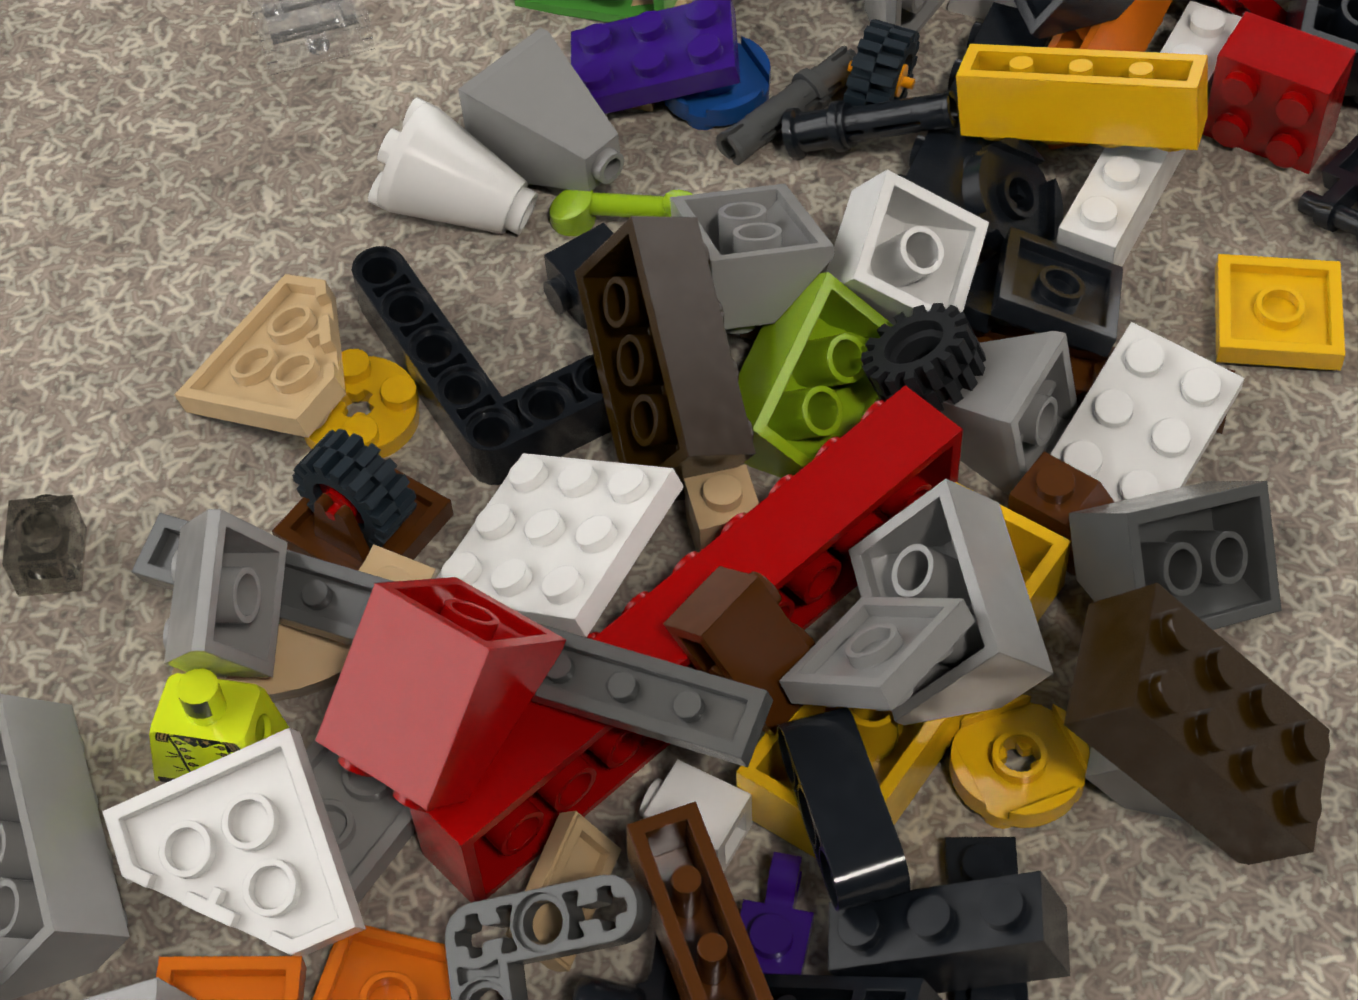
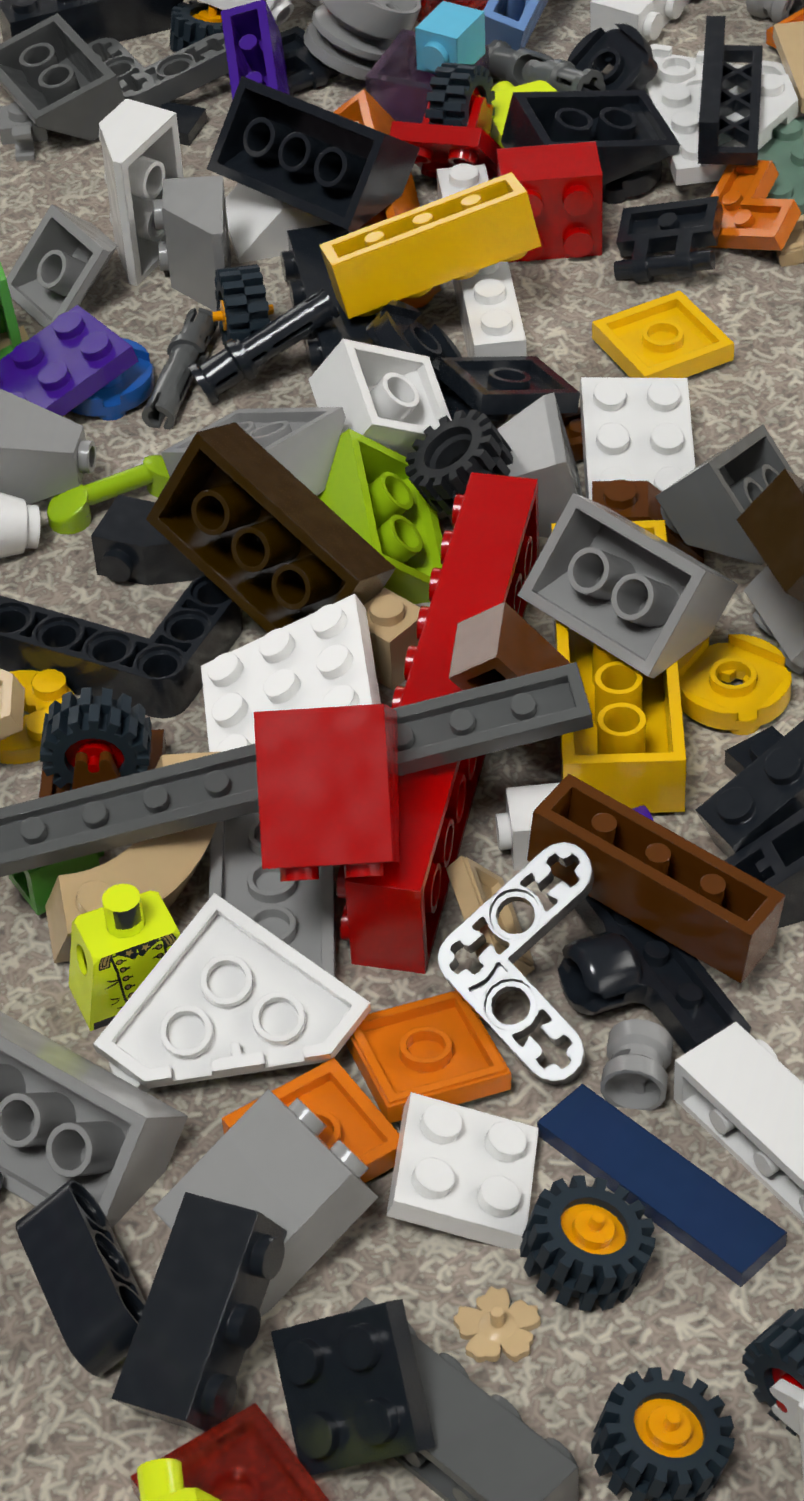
camera: 35 degrees left, 10 degrees down
(225, 597) = (89, 822): light grey slope -> none
(843, 809) = (669, 734): black beam -> none
(878, 652) = (618, 619): light grey plate -> none

